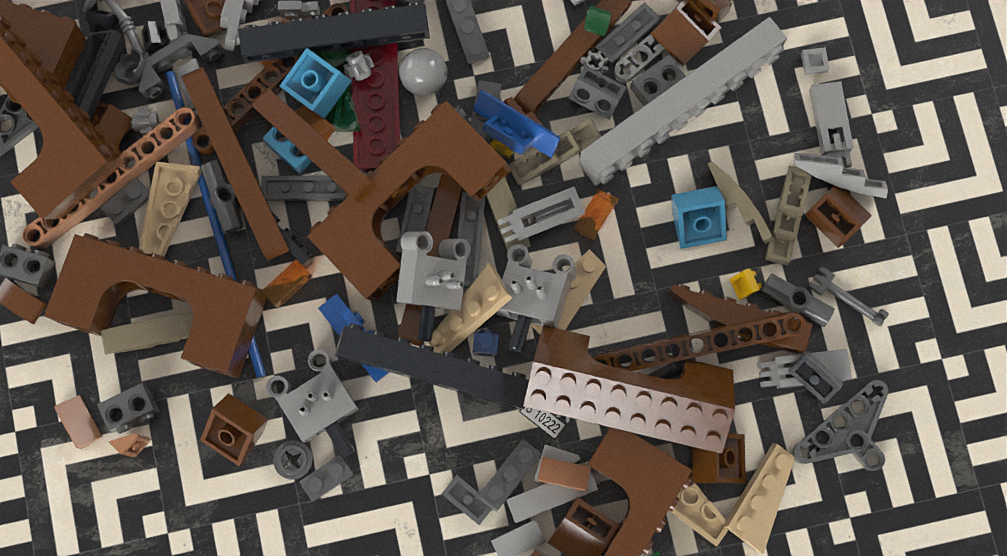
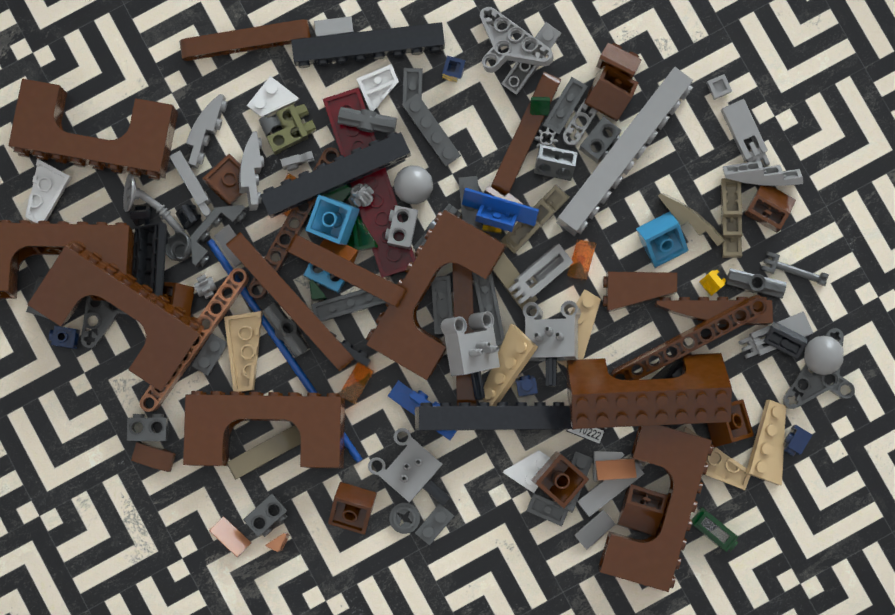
camera: 15 degrees left, 5 degrees up
(271, 163) = (316, 293): none -> dark green slope
(400, 117) = (406, 228): none -> light grey brick
(462, 446) = (526, 469): none -> white wing
(492, 466) = (560, 479): none -> reddish brown slope
(652, 265) = (633, 288): none -> reddish brown slope
(797, 504) = (797, 440): none -> dark blue brick
(858, 407) = (823, 355): none -> light grey piece

